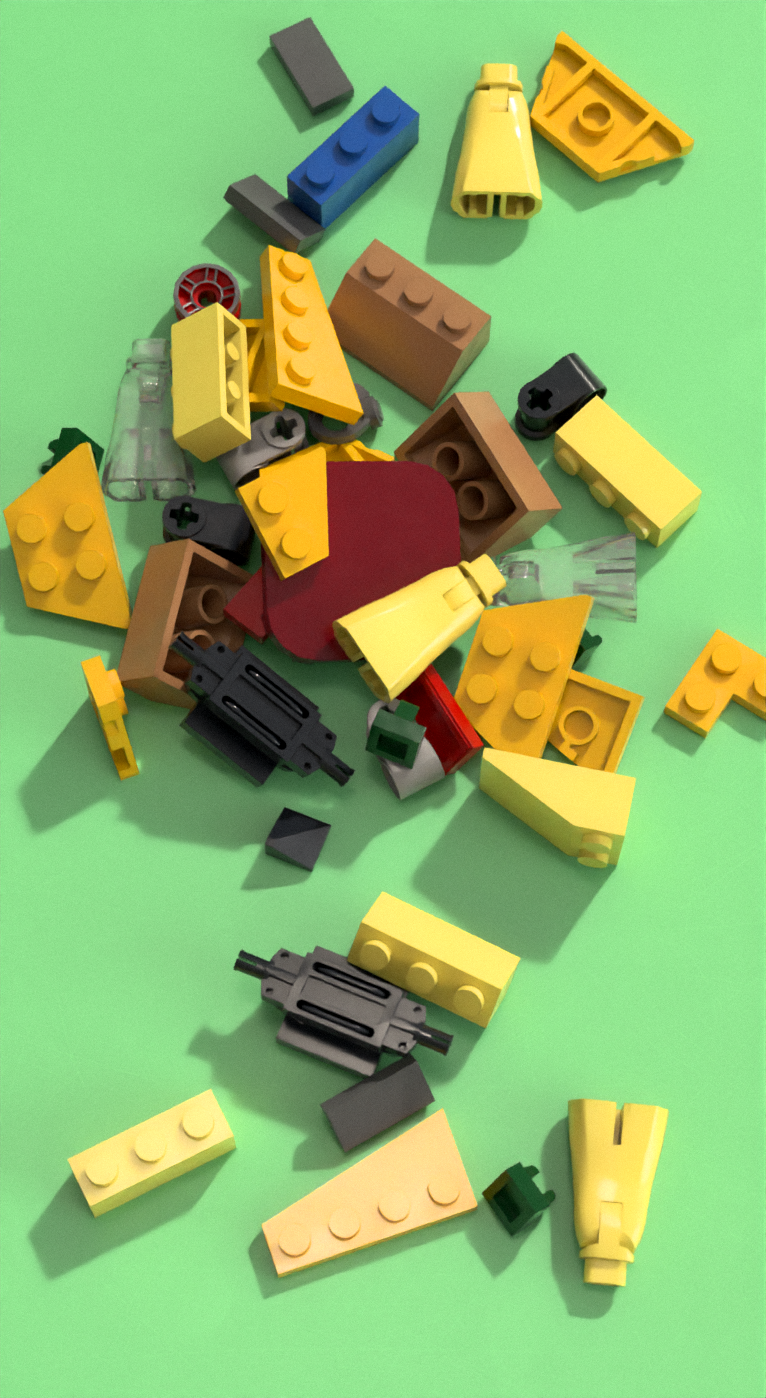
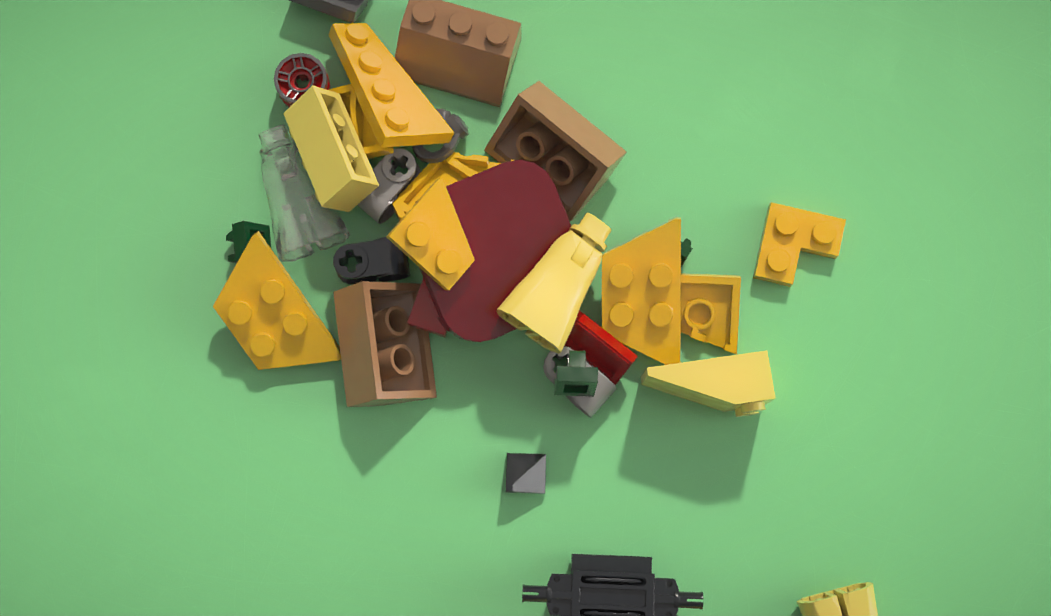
camera: 20 degrees left, 10 degrees up
(109, 706) = (348, 427): yellow wing -> none
(254, 715) = (462, 397): black piece -> none
(433, 959) = (663, 534): light yellow brick -> none
(556, 397) = (592, 61): black piece -> none
(591, 567) = (653, 201): clear piece -> none
(625, 472) = (661, 106): light yellow brick -> none

